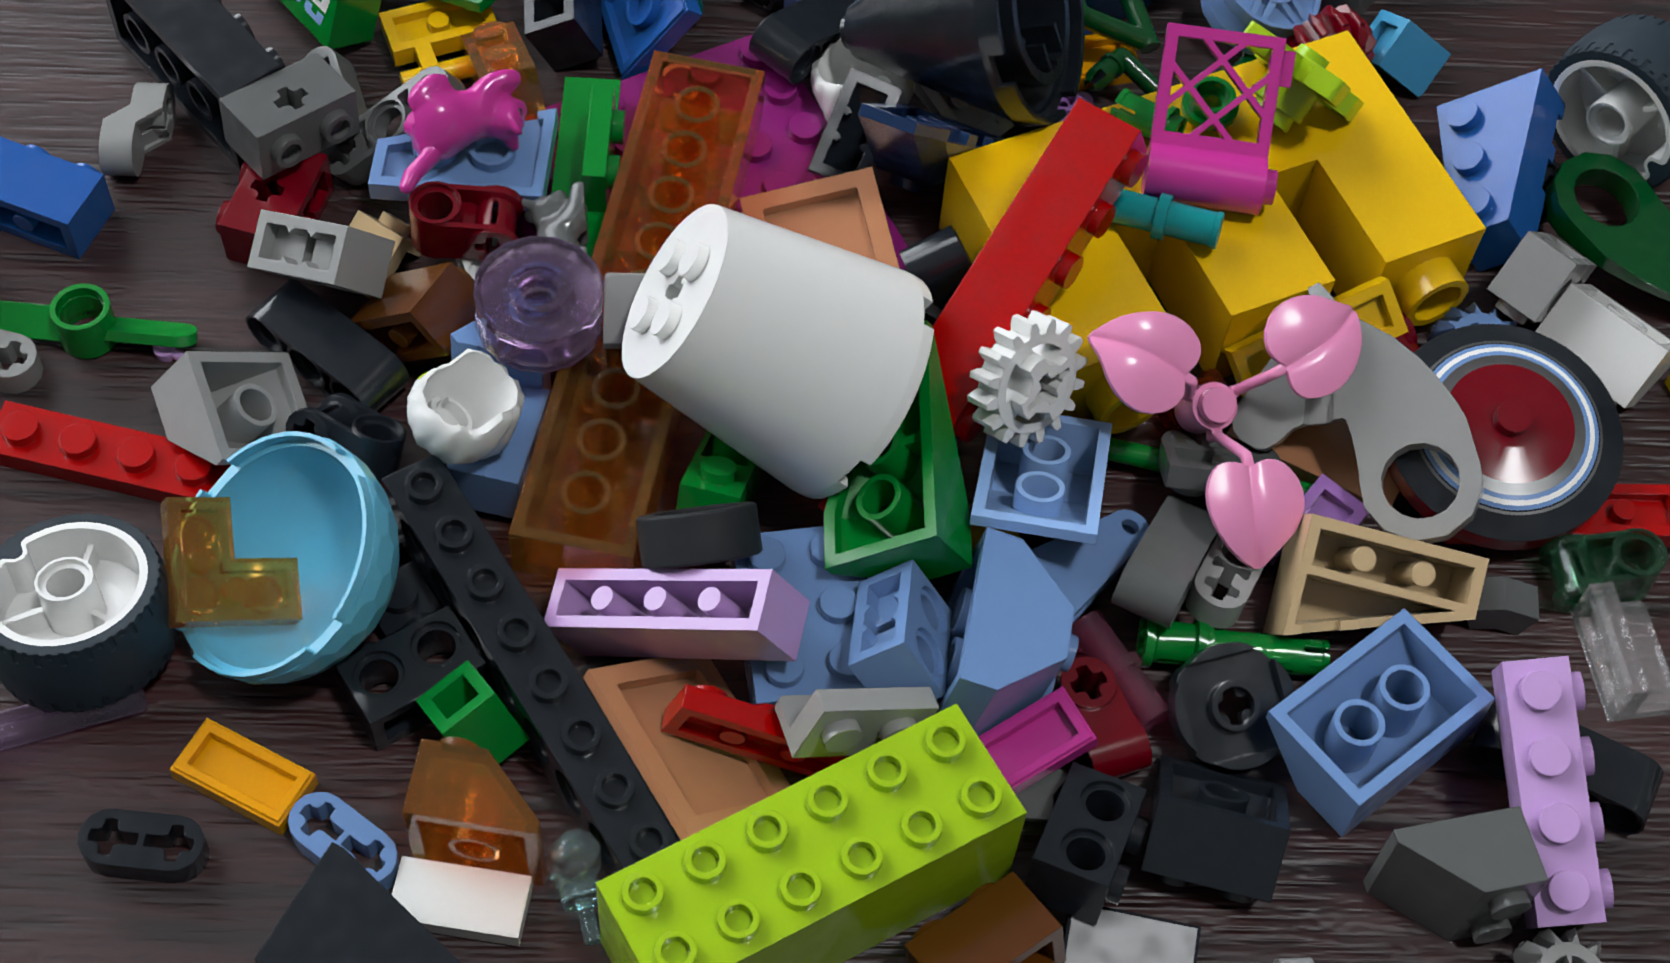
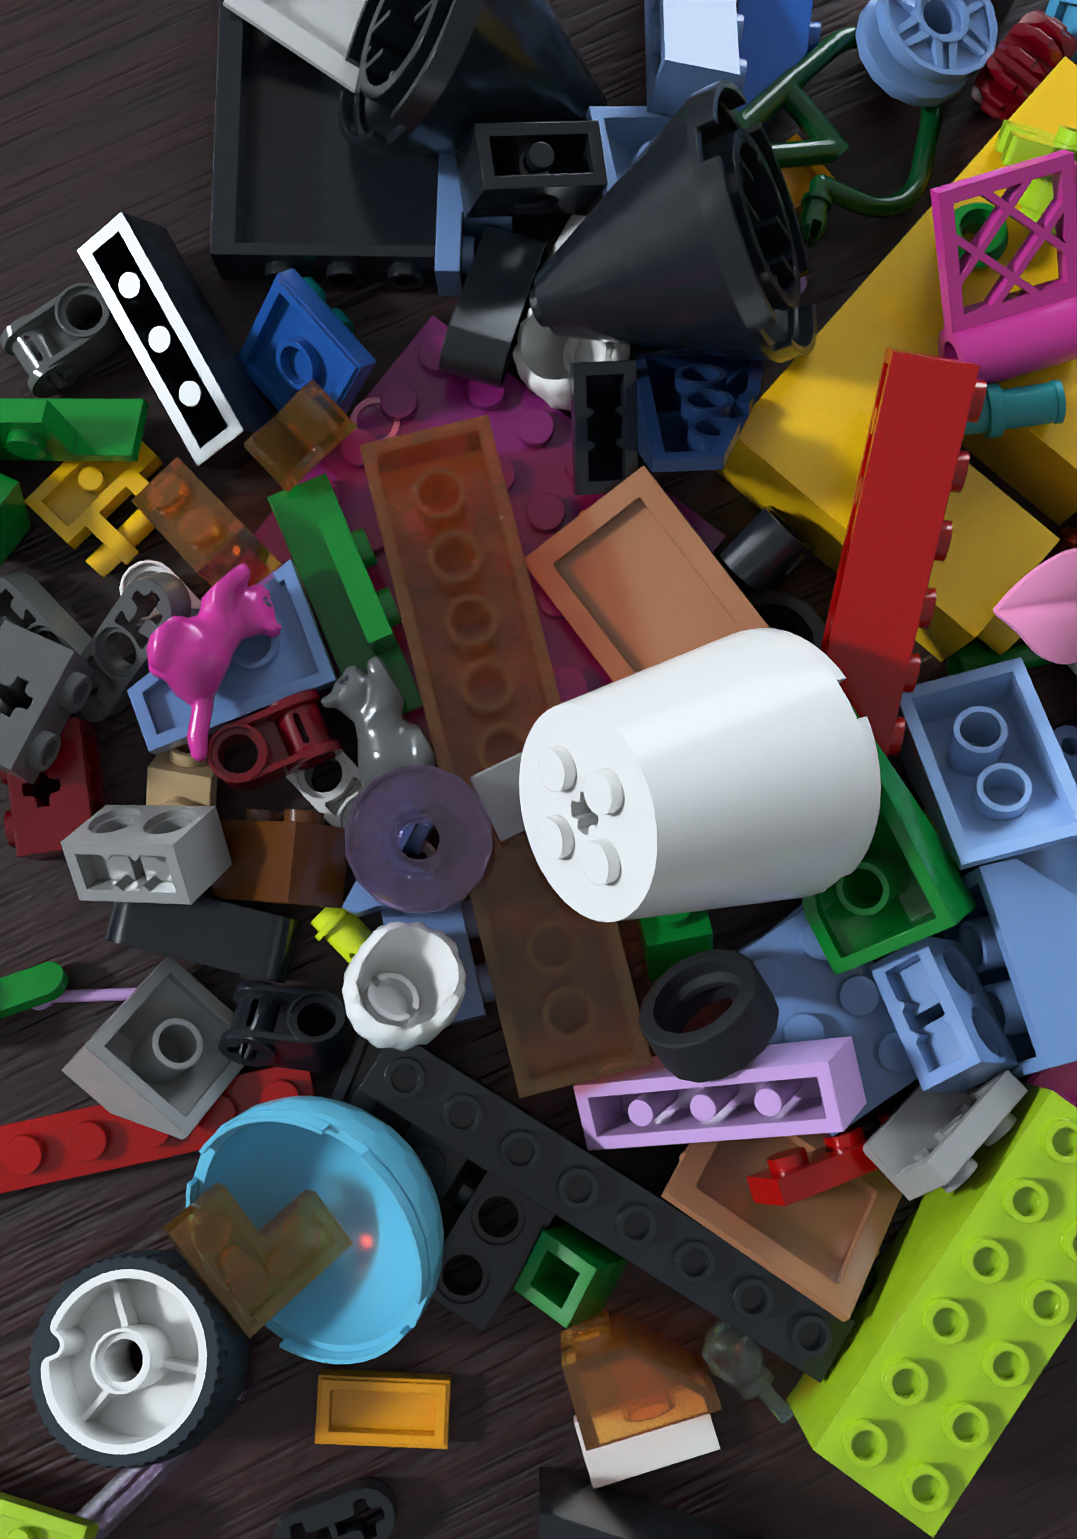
camera: 20 degrees left, 25 degrees up
(350, 826) = (510, 1448): medium blue beam -> none
(618, 50) = (300, 436): none -> clear orange panel
(1027, 378) = (950, 685): white gear -> none
(1144, 113) = (911, 288): green pin -> none

